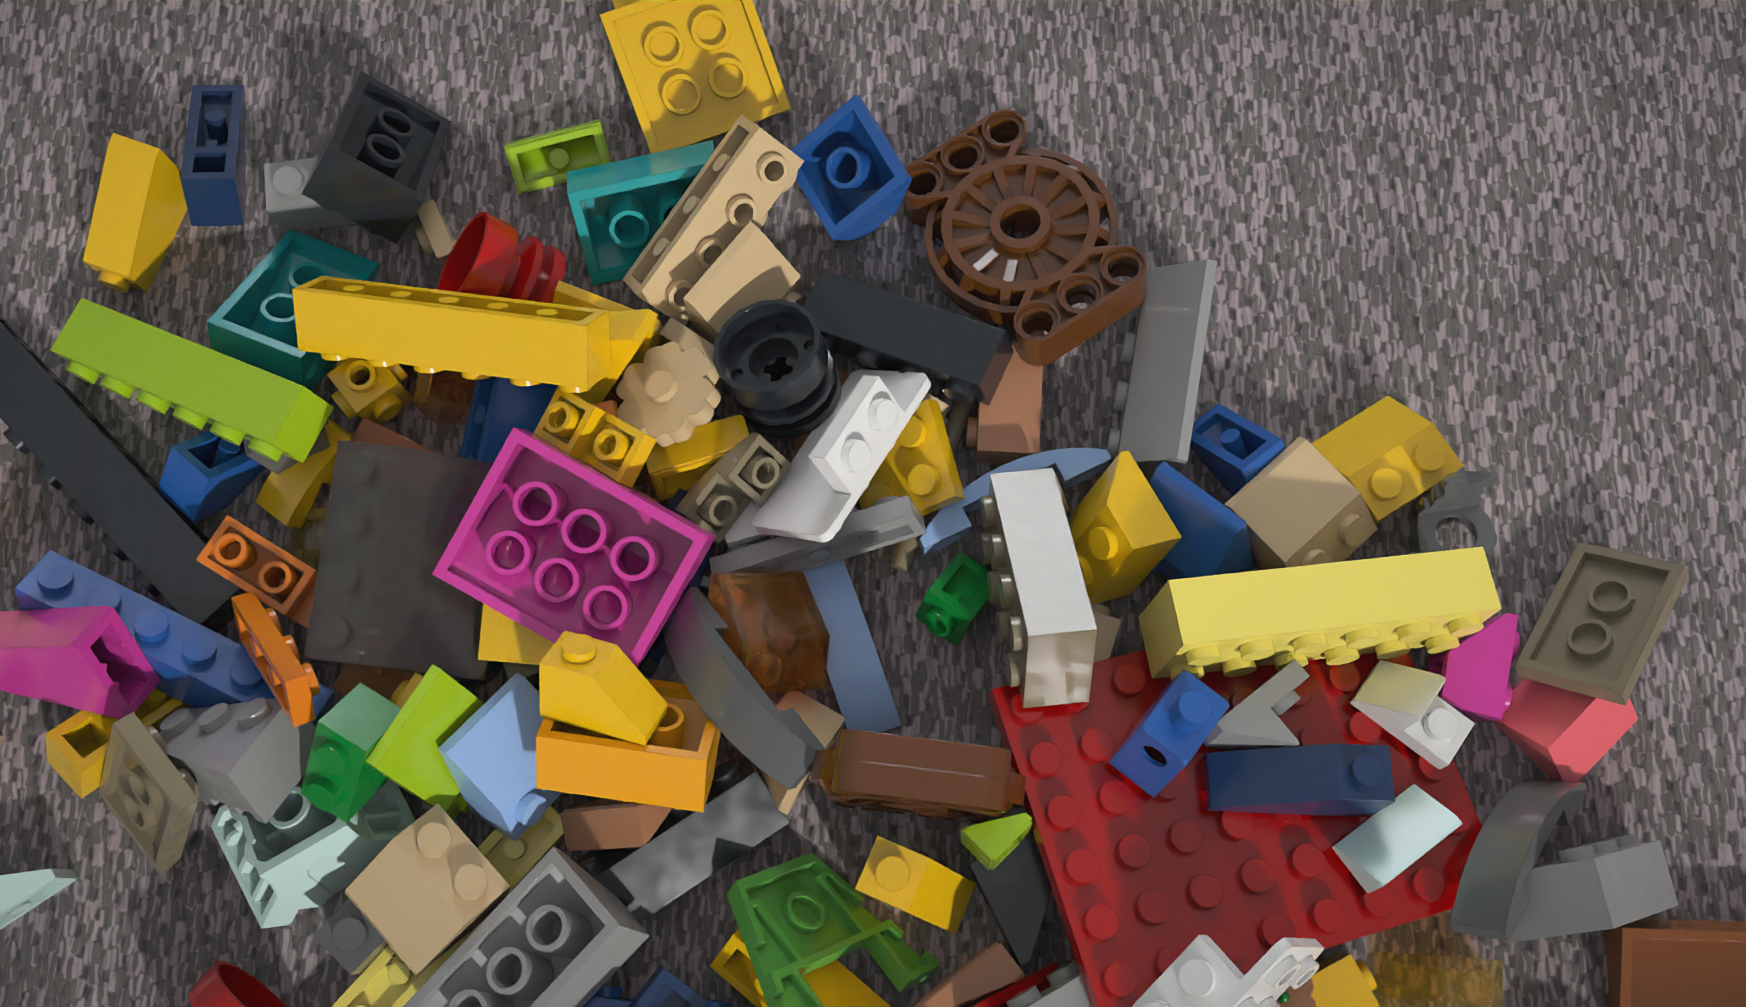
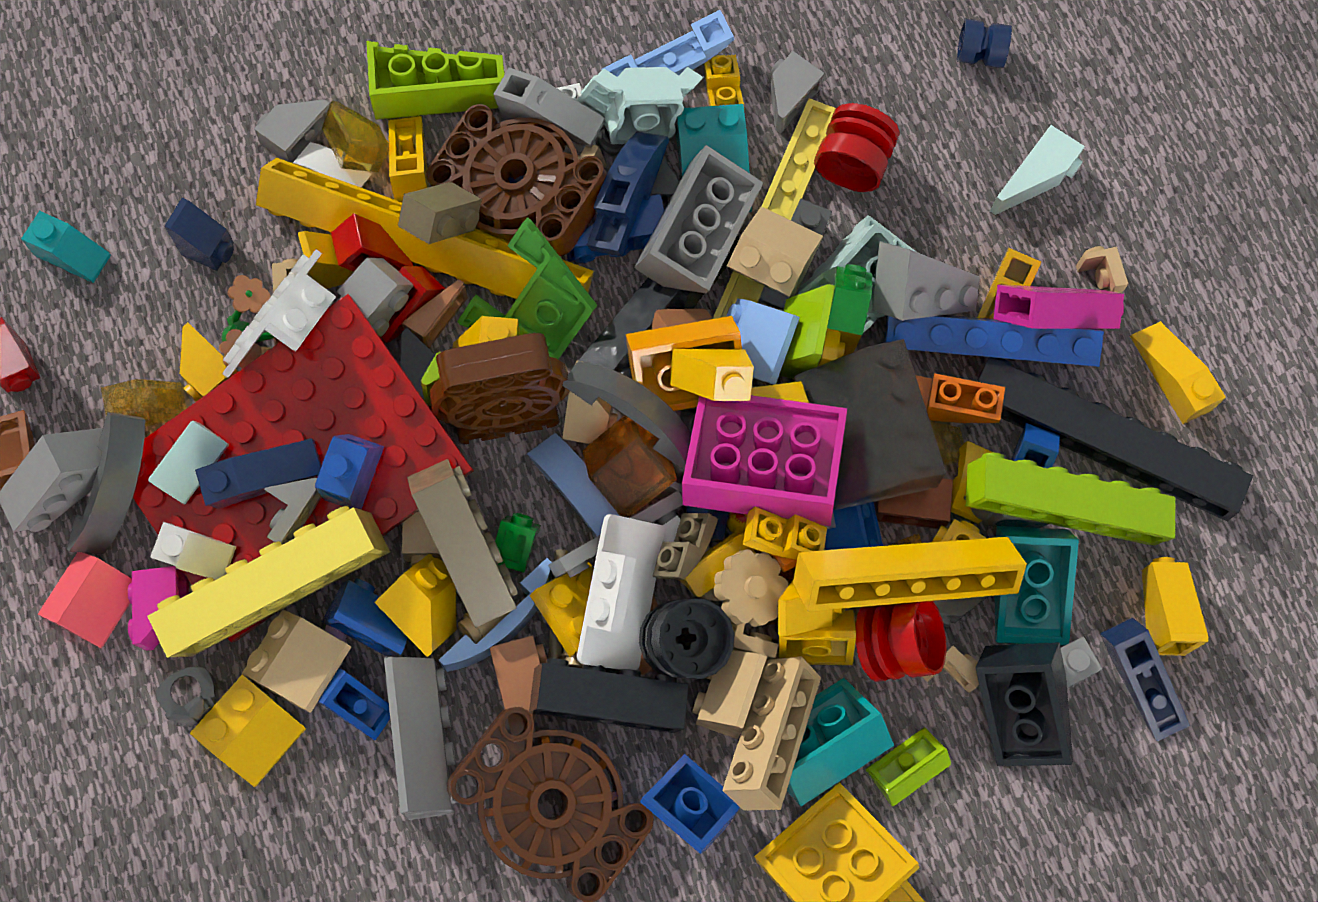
camera: 155 degrees right, 5 degrees down
(148, 792) = (976, 259): dark tan plate -> none
(276, 658) = (922, 339): orange plate -> none
(1601, 622) = (73, 658): dark tan plate -> none

